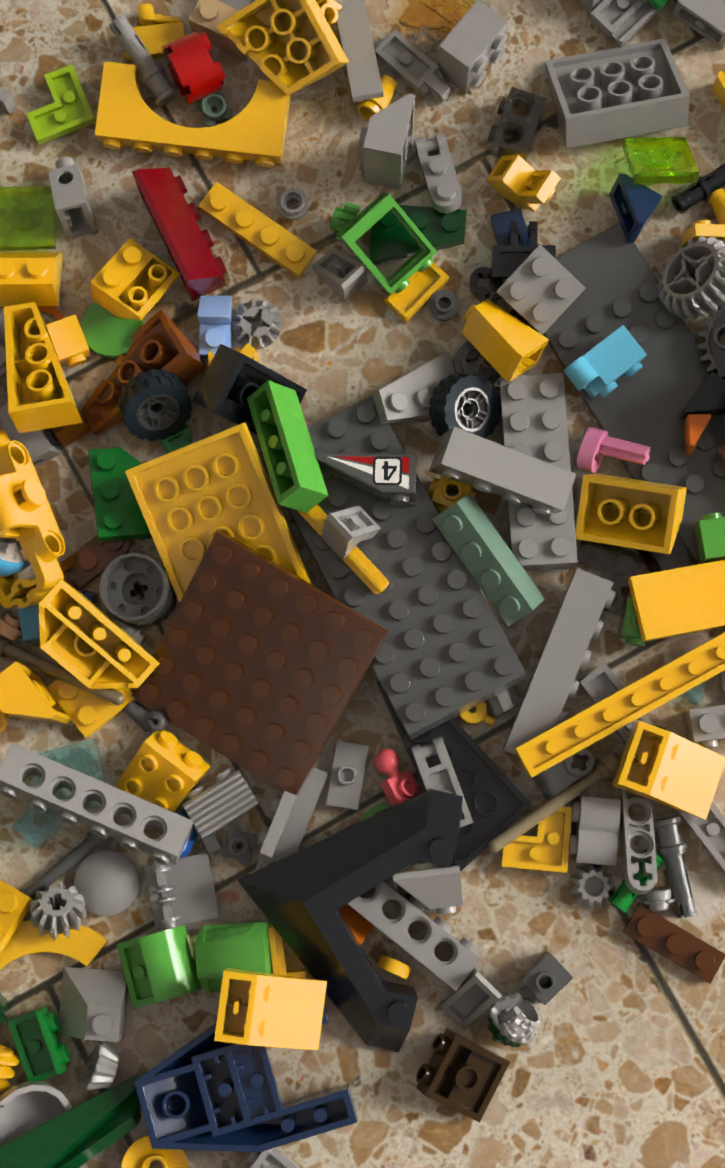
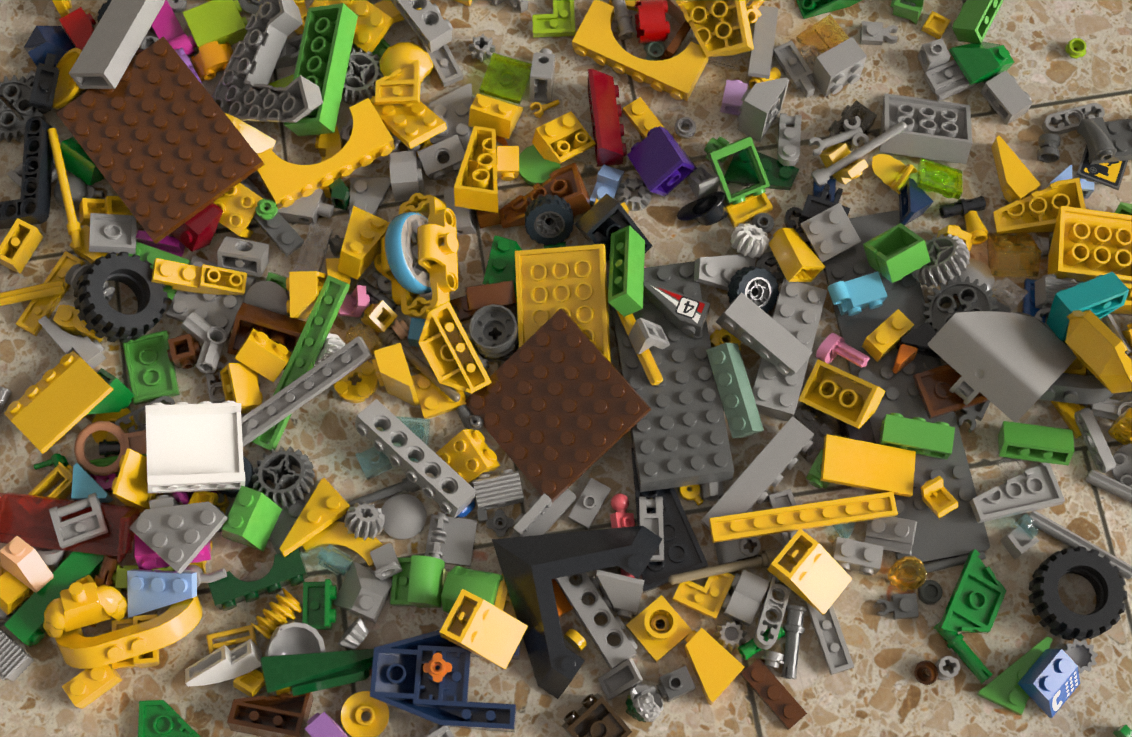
camera: 15 degrees right, 10 degrees down
(38, 975) = (334, 560): none -> clear light blue brick
(89, 242) = (542, 108): none -> yellow hand
(106, 955) = (385, 562): none -> light grey bracket
(112, 541) = (487, 294): none -> reddish brown slope
(236, 1075) = (437, 674): none -> orange plate
(238, 86) = (677, 40): none -> reddish brown tile
(277, 267) = (661, 161): none -> dark purple slope
(343, 137) = (732, 97): none -> lavender brick
(360, 314) = (705, 210): none -> black piece
(435, 337) = (749, 240): none -> white gear
(487, 893) = (655, 640): none -> yellow plant
(501, 212) = (822, 175): none -> light grey piece
(523, 136) = (852, 132): none -> light grey bar
(582, 935) = (711, 664): none -> yellow slope
(592, 170) = (892, 171): none -> yellow piece
(640, 289) = (896, 252): none -> bright green piece
(664, 408) = (887, 335): none -> yellow brick

